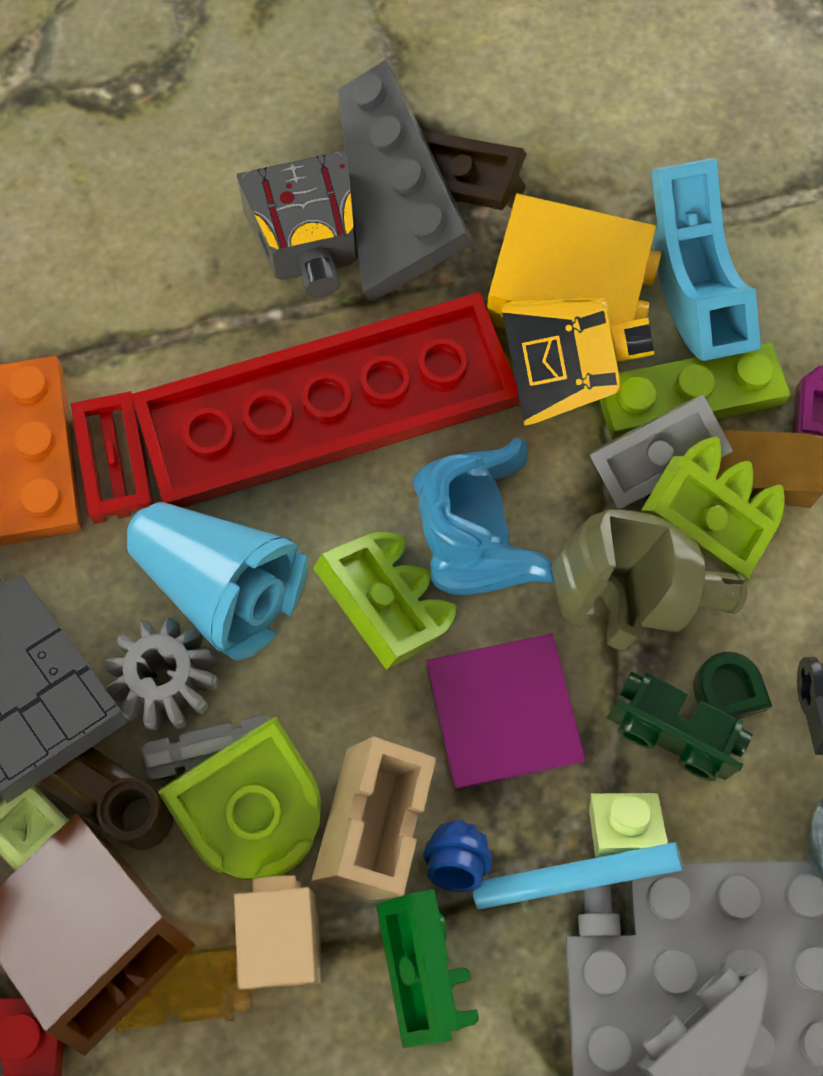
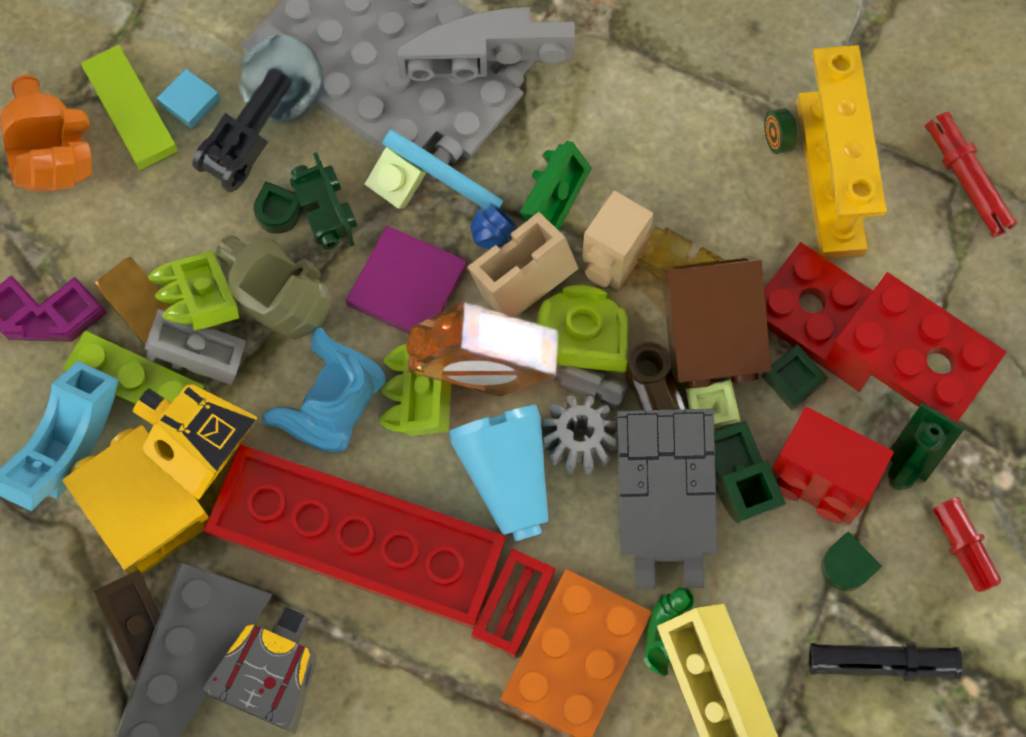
camera: 140 degrees left, 0 degrees up
(326, 654) = (482, 350): none -> clear orange brick

